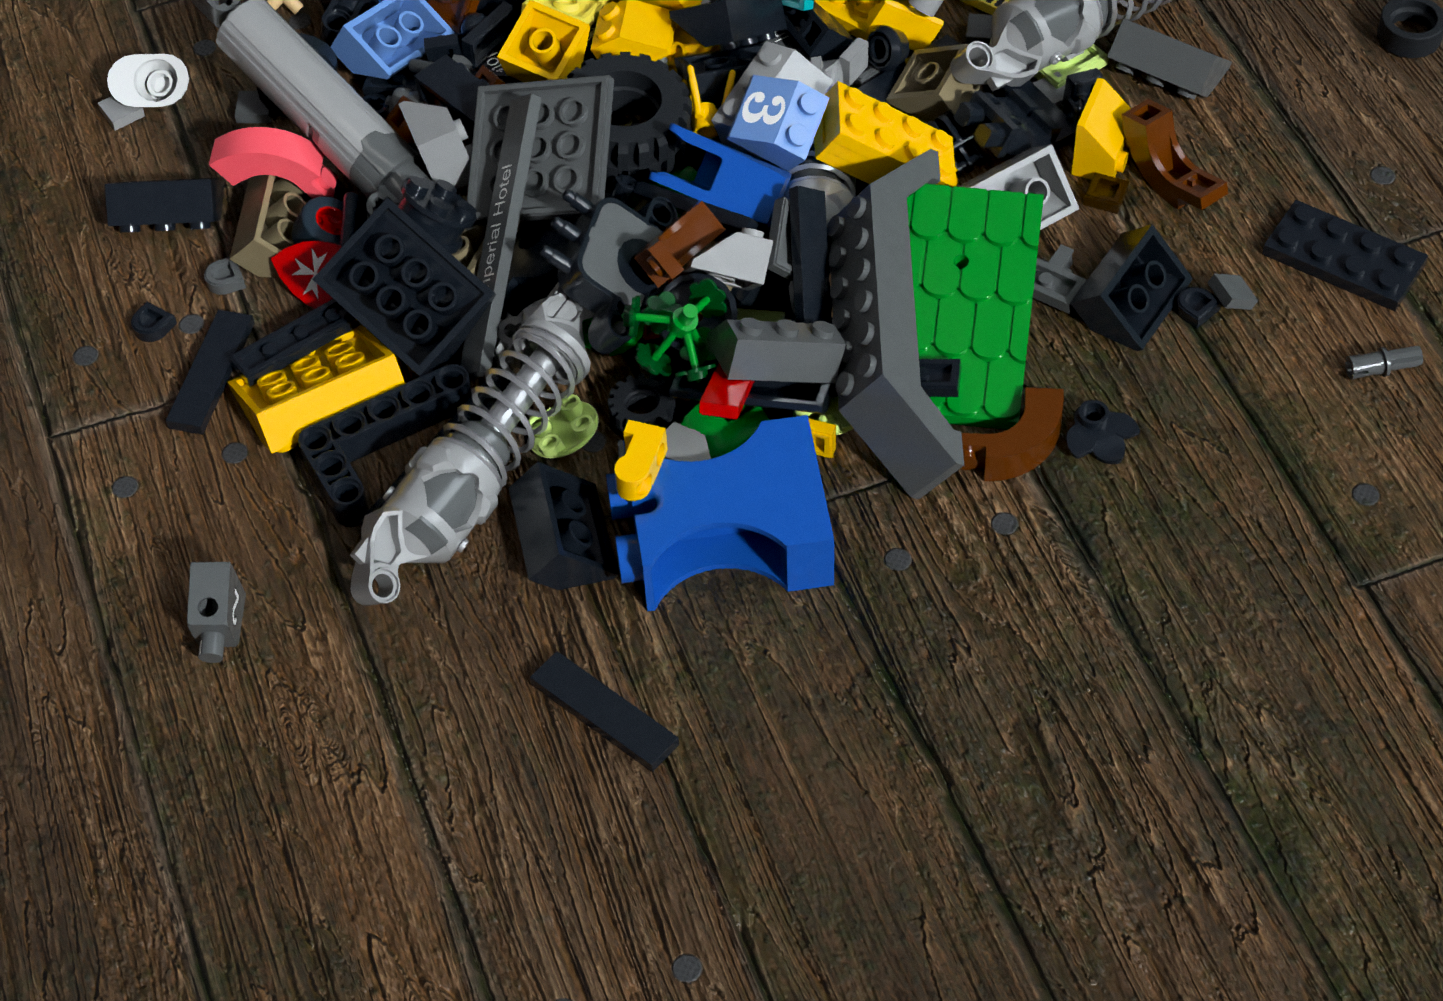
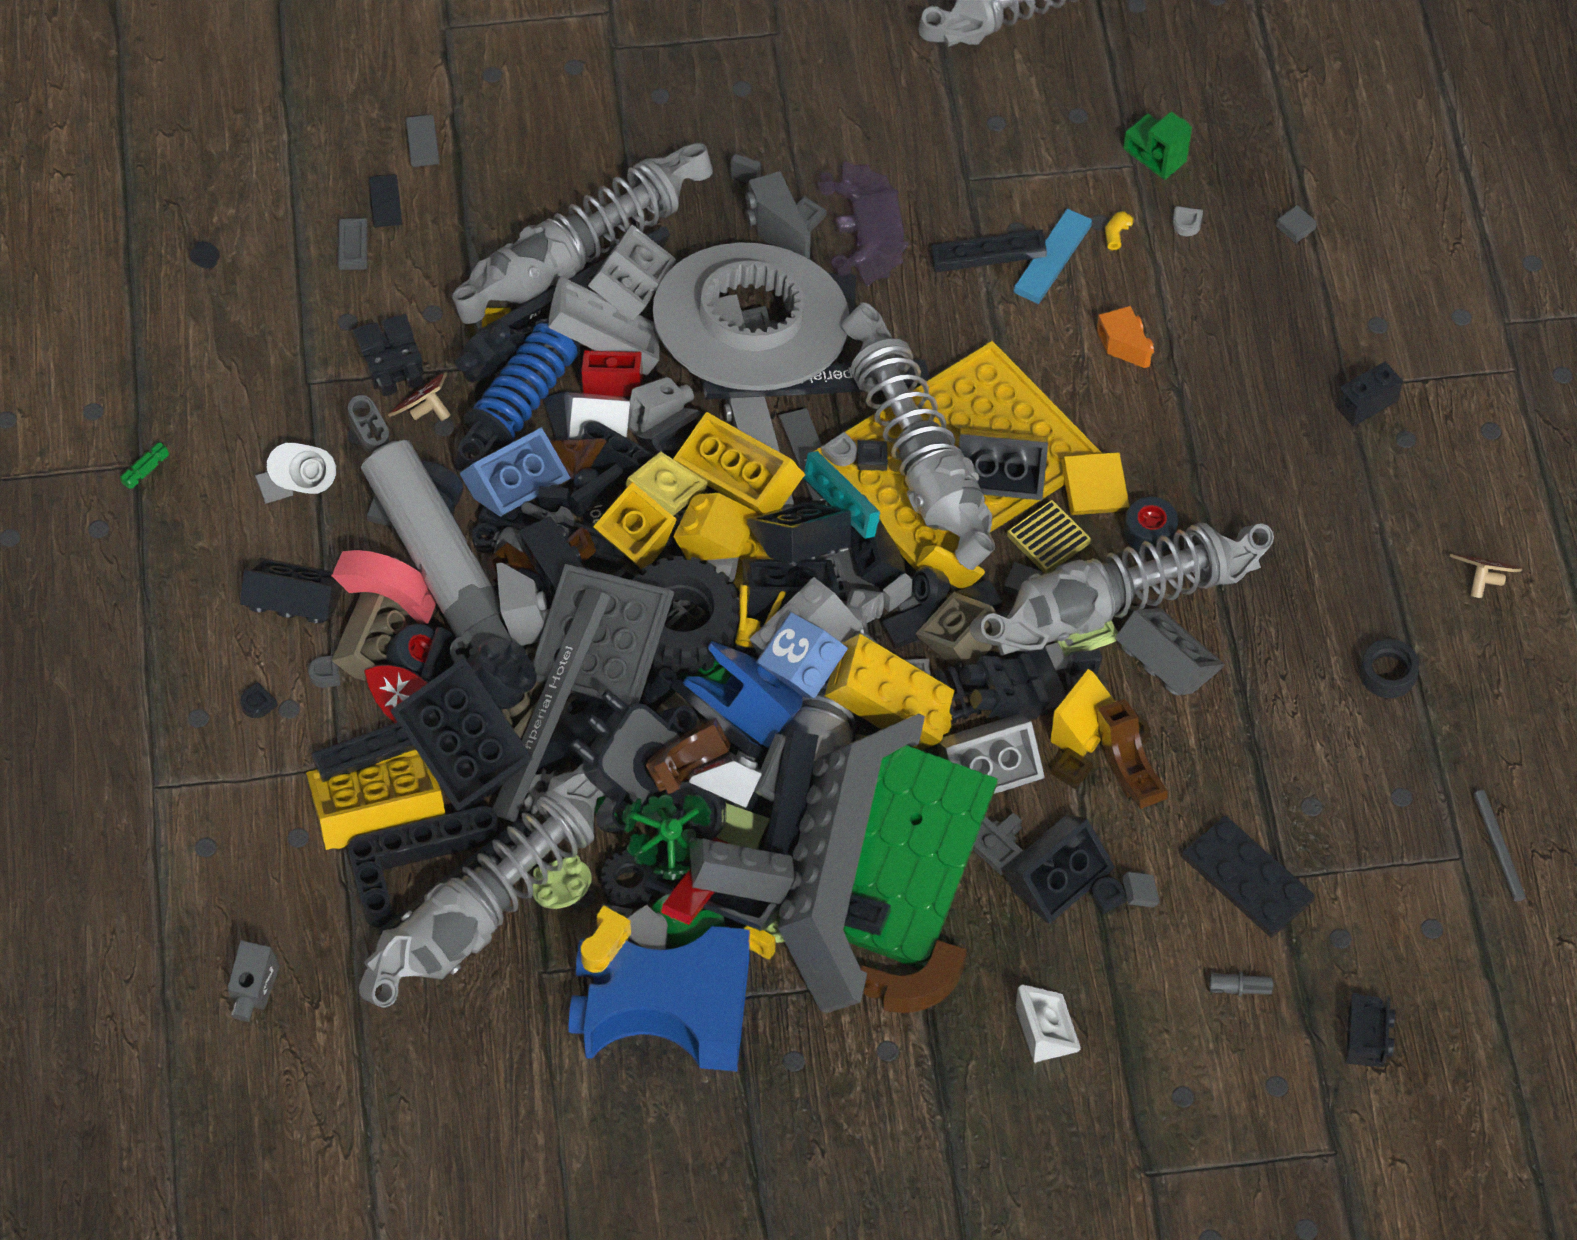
camera: 10 degrees right, 5 degrees up
(209, 372) = (294, 759): black tile -> none
(561, 529) = (536, 972): black slope -> none
(604, 711) = (529, 1134): black tile -> none
(1100, 437) = (988, 996): black plate -> none
(1177, 451) = (1045, 1023): none -> white slope

